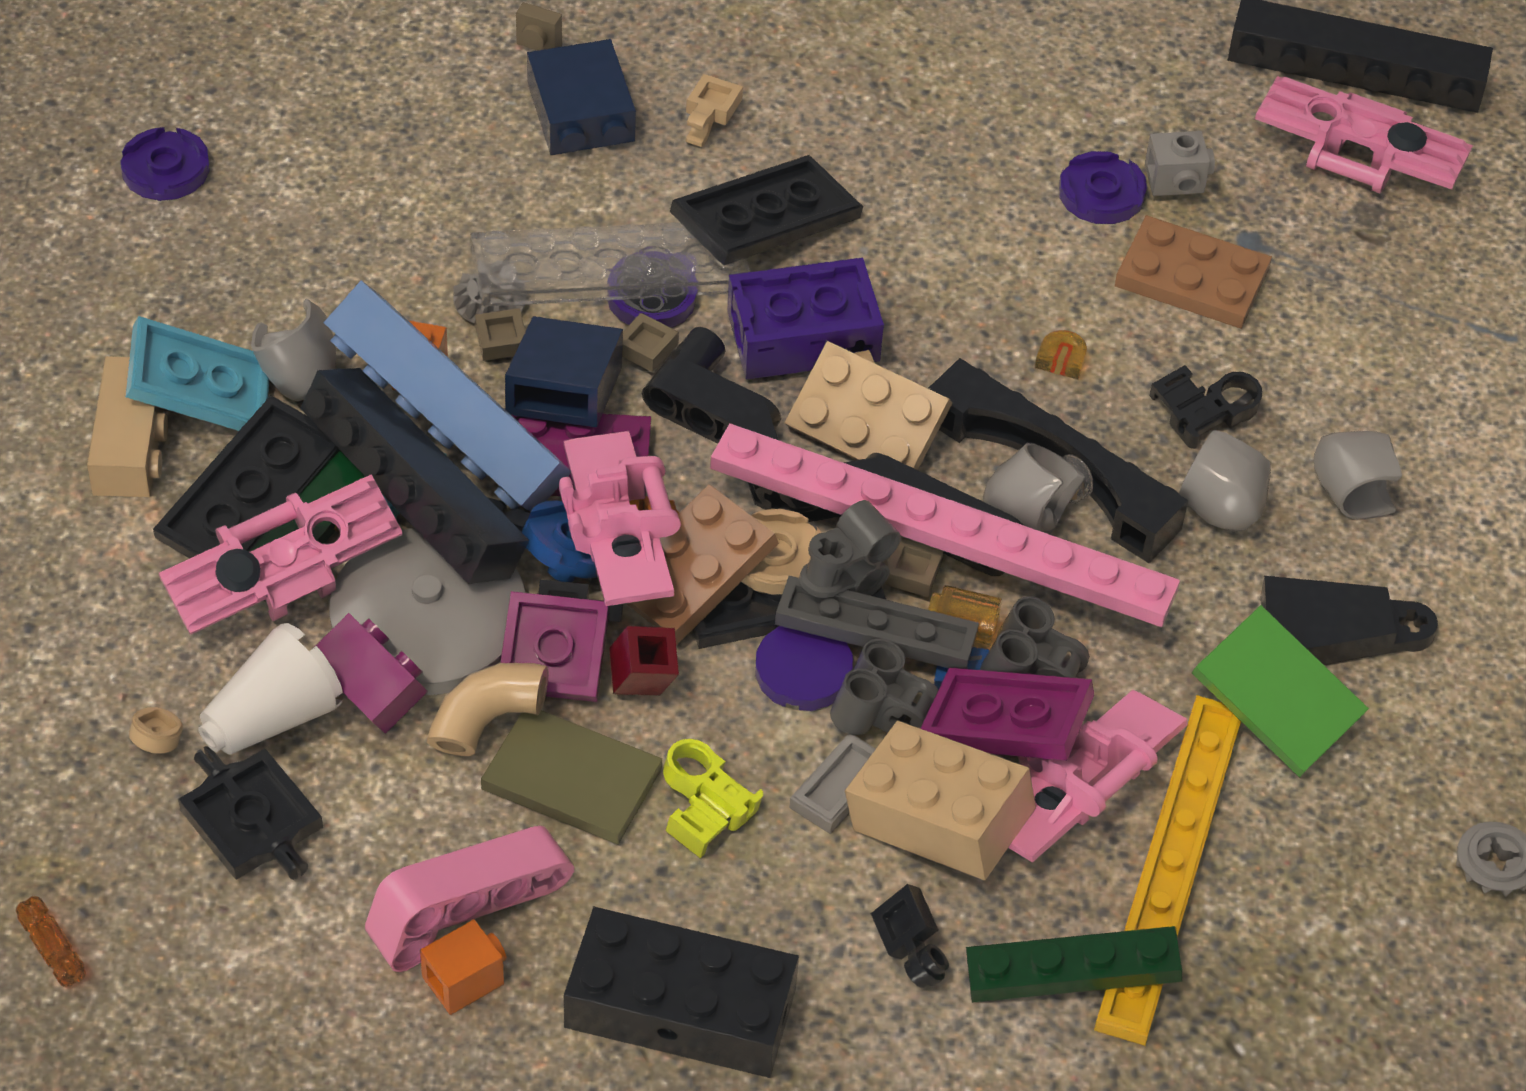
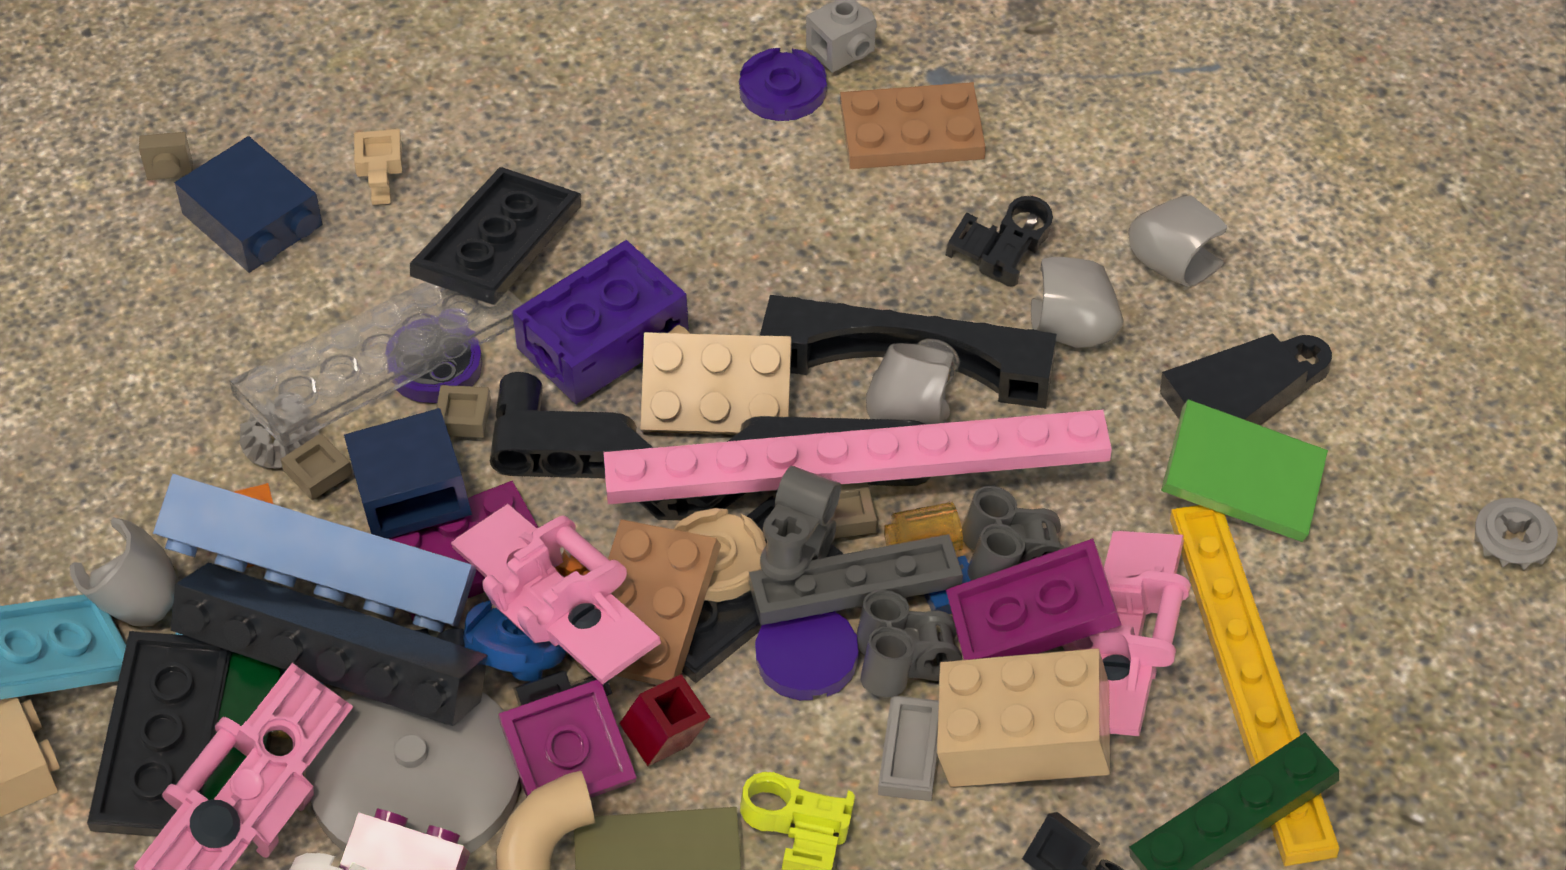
camera: 25 degrees left, 0 degrees up
(1062, 354) = (847, 251): clear yellow tile -> none

